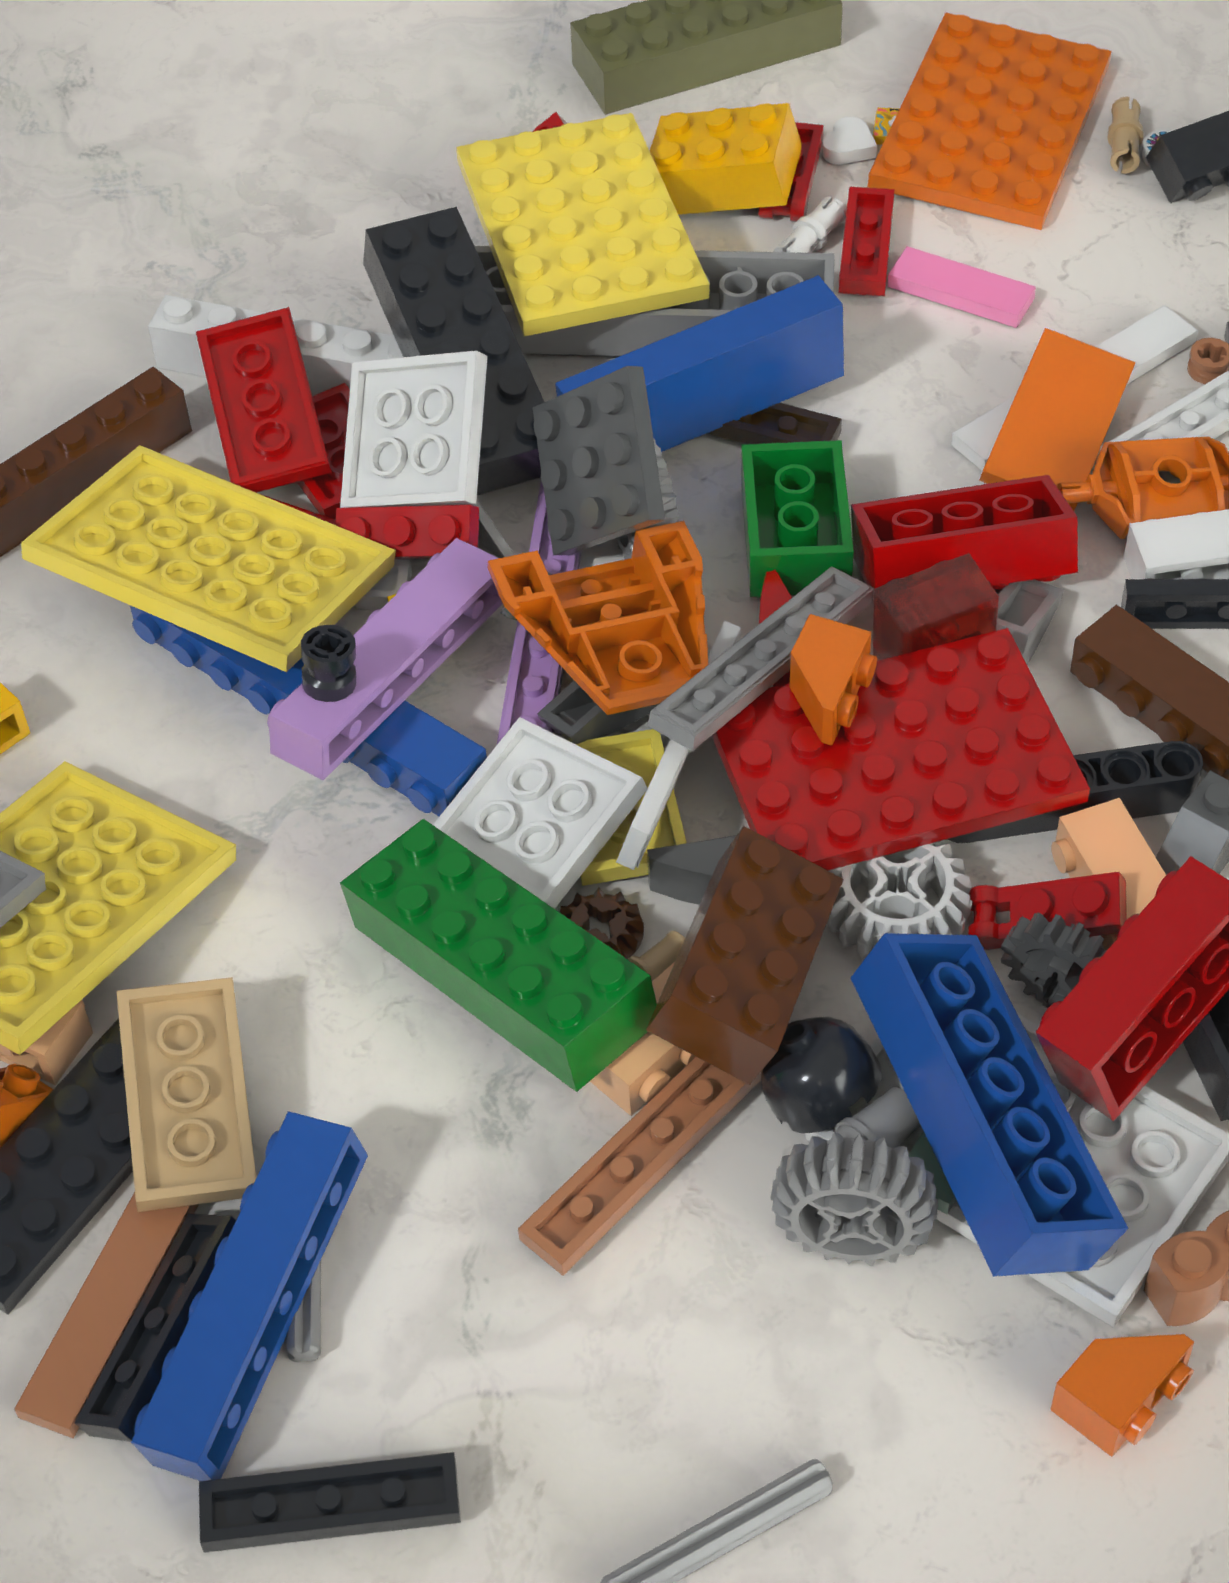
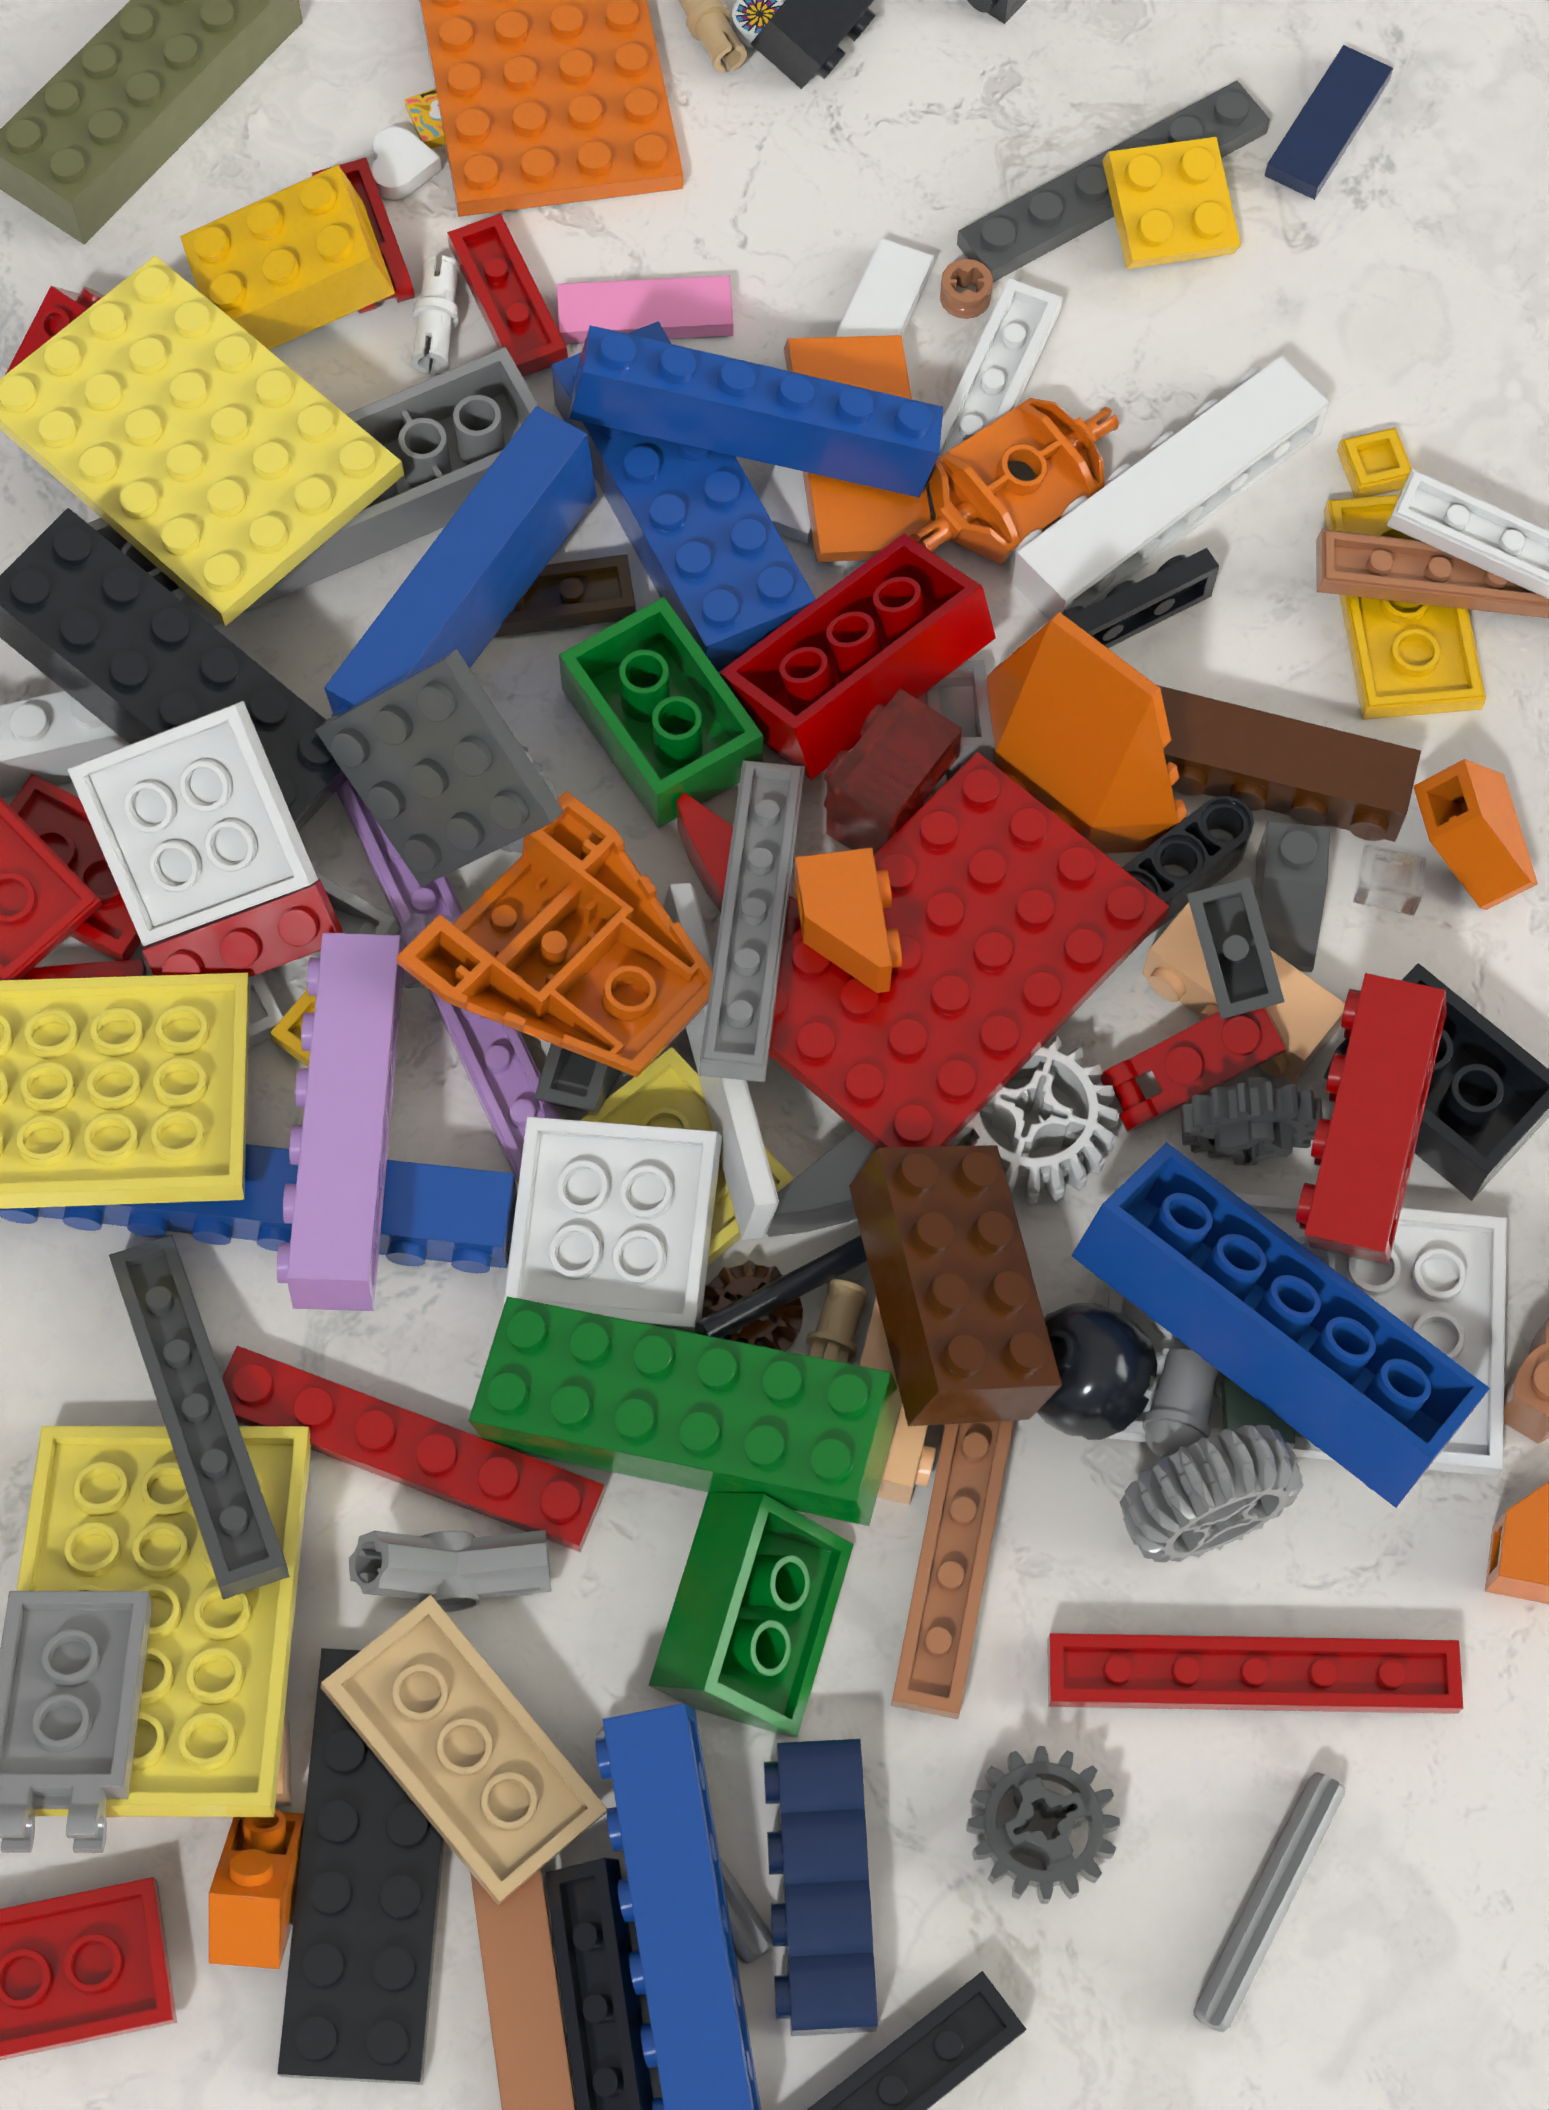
camera: 35 degrees left, 15 degrees up
(162, 798) = (199, 1418): none -> dark grey plate
(267, 979) = (451, 1566): none -> light grey piece
(302, 903) = (414, 1449): none -> red plate
(328, 663) = (313, 1199): black wheel -> none
(377, 1333) = (824, 1888): none -> dark blue brick
(459, 1120) = (752, 1612): none -> green slope
(579, 1404) = (1031, 1795): none -> dark grey gear
(623, 914) = (783, 1290): none -> black bar
(818, 1363) = (1254, 1673): none -> red plate
(905, 389) = (694, 529): none -> blue brick
(984, 351) = (756, 412): none -> blue brick
(1090, 648) = (1085, 737): none -> orange wedge
(1120, 825) = (1235, 948): none -> dark grey slope

